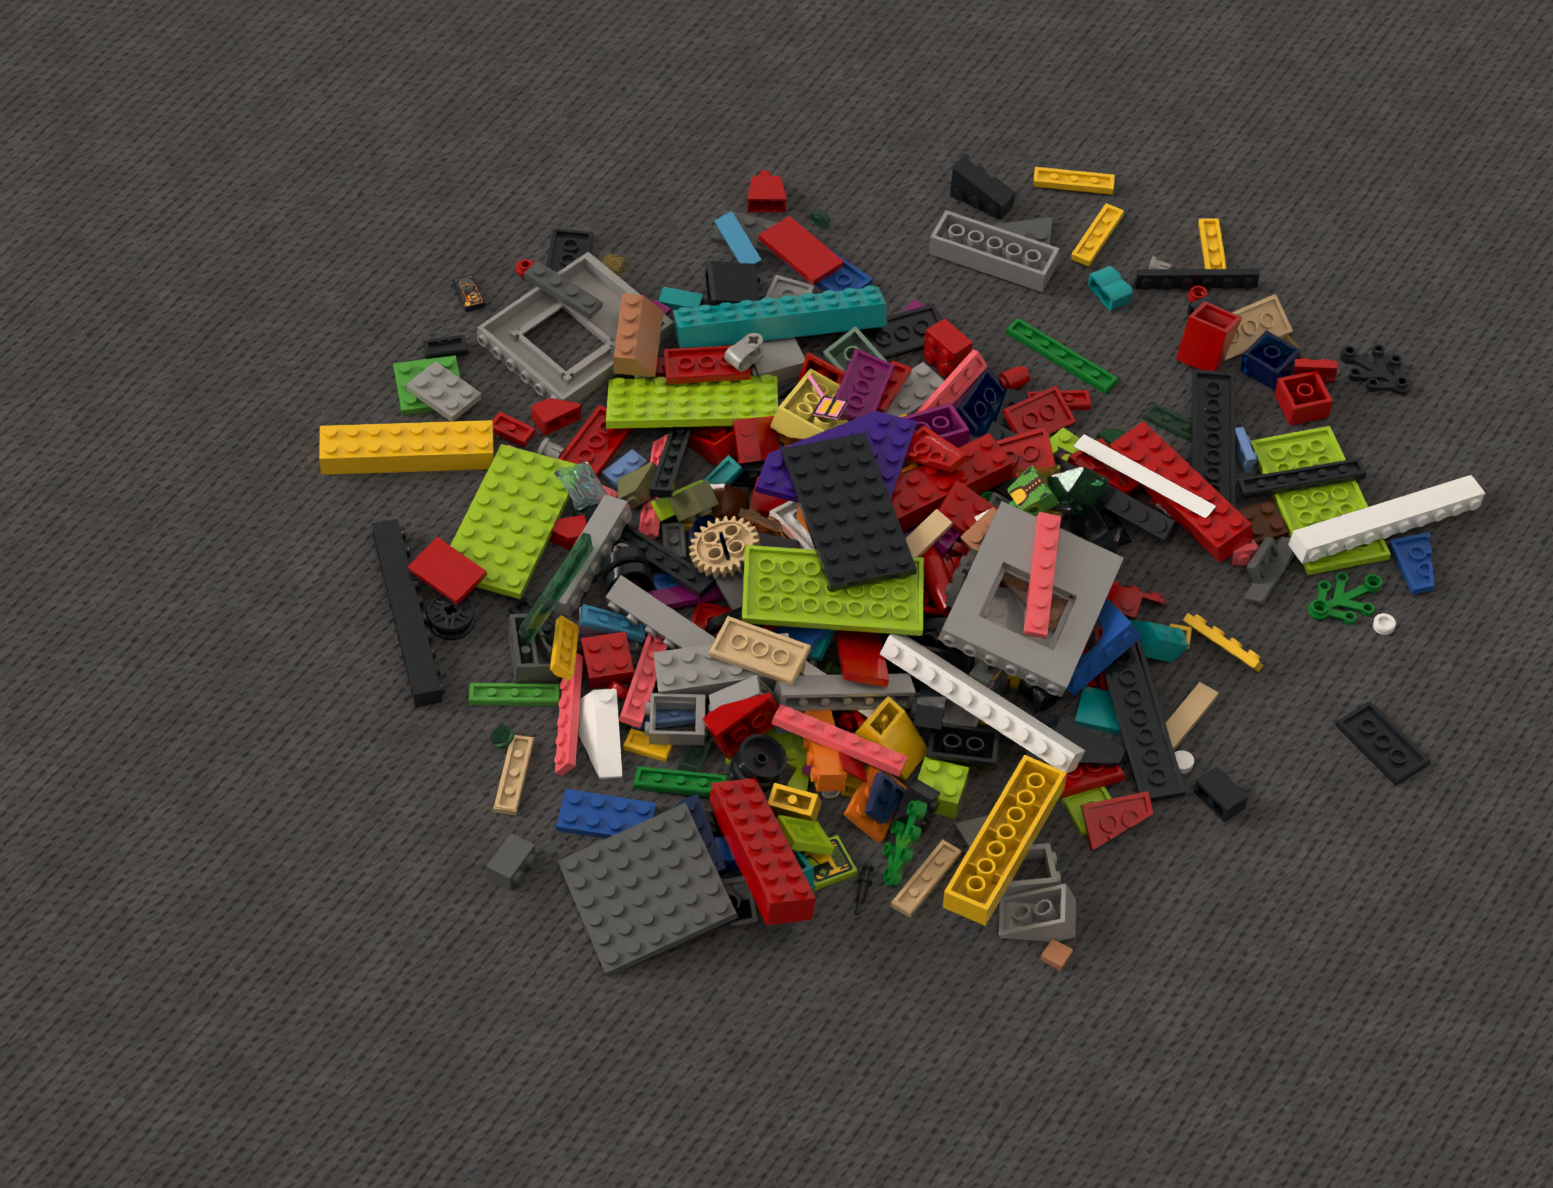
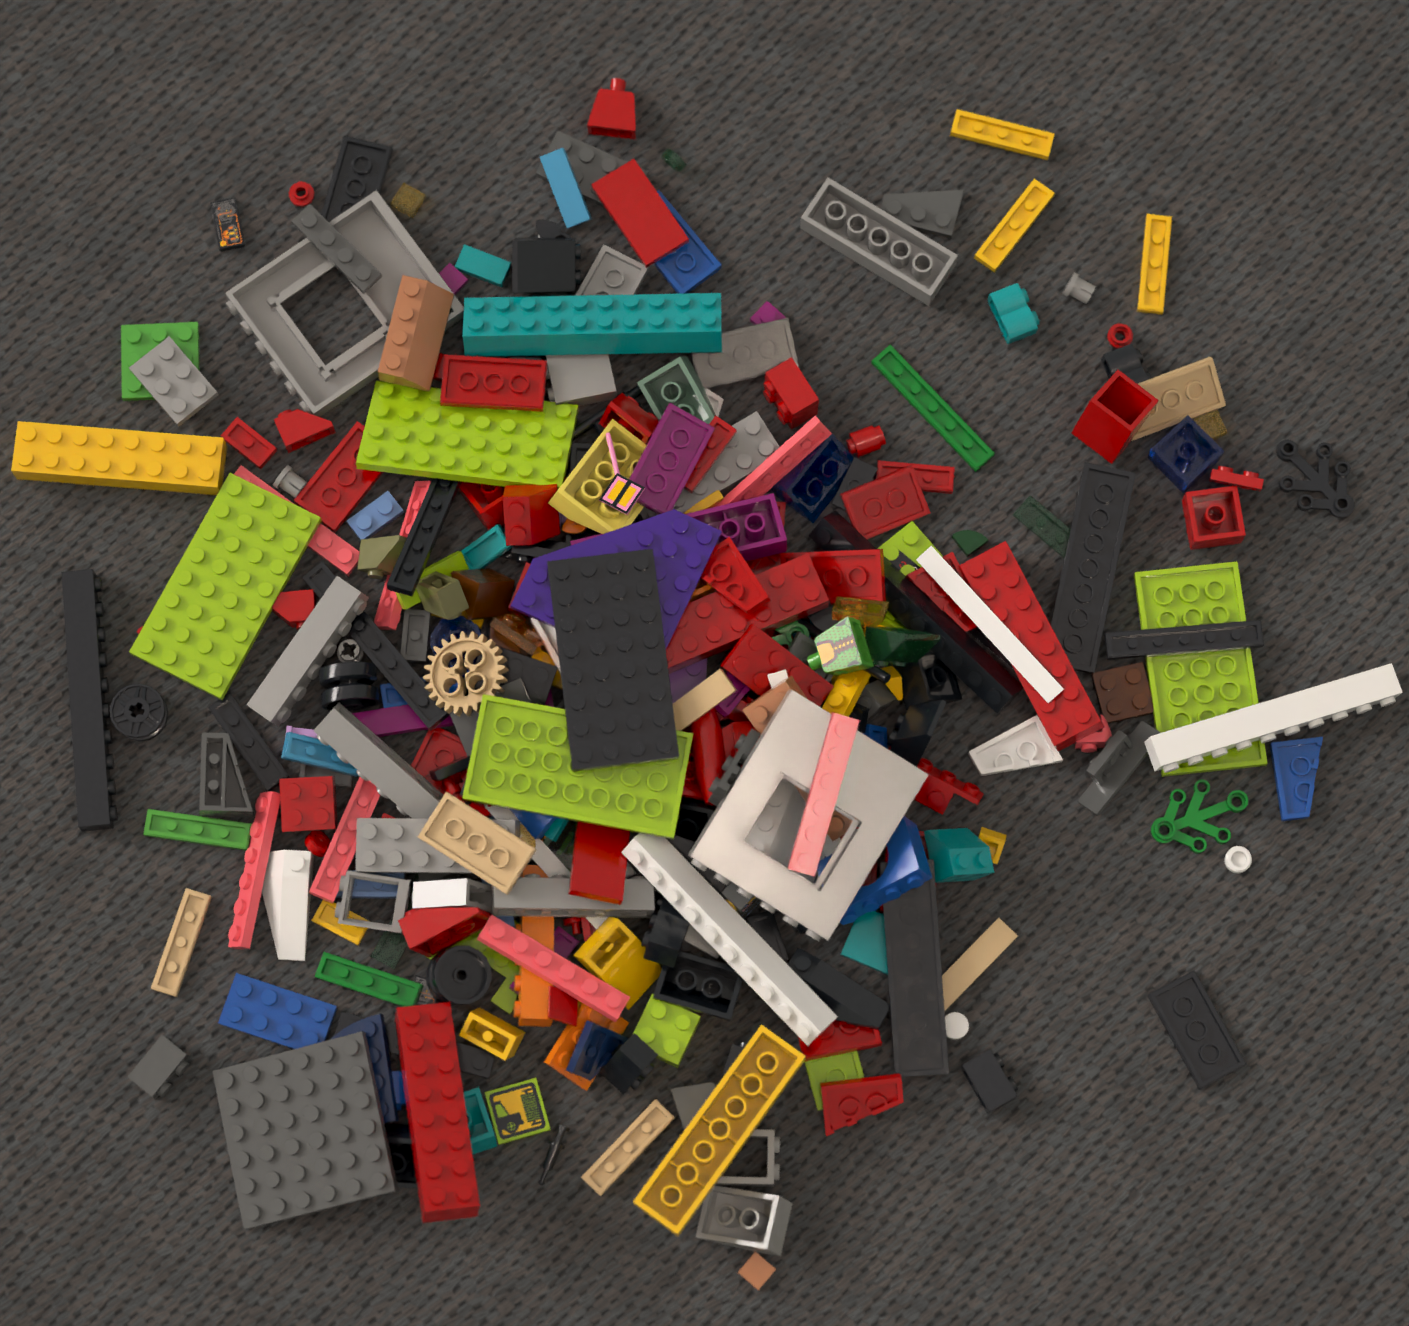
camera: 10 degrees right, 25 degrees up
(445, 347) = (187, 308): black plate -> none
(447, 570) = (138, 658): red tile -> none
(502, 736) = (174, 890): clear green tile -> none
(556, 588) = (258, 708): clear green tile -> none
(564, 648) = (258, 788): yellow plate -> none
(586, 483) = (321, 546): clear light blue plate -> none
(745, 352) = (536, 383): light grey piece -> none
(805, 835) = (494, 1084): lime plate -> none
(893, 873) = (602, 1110): green plant -> none
(980, 190) = (880, 142): black wedge -> none
(1074, 527) = (895, 682): none -> yellow slope
(1185, 567) = (1016, 749): none -> white wing
(1189, 278) = (1133, 313): black plate -> none
(1216, 636) = (1043, 872): yellow plate -> none
(1244, 451) = (1124, 574): medium blue plate -> none

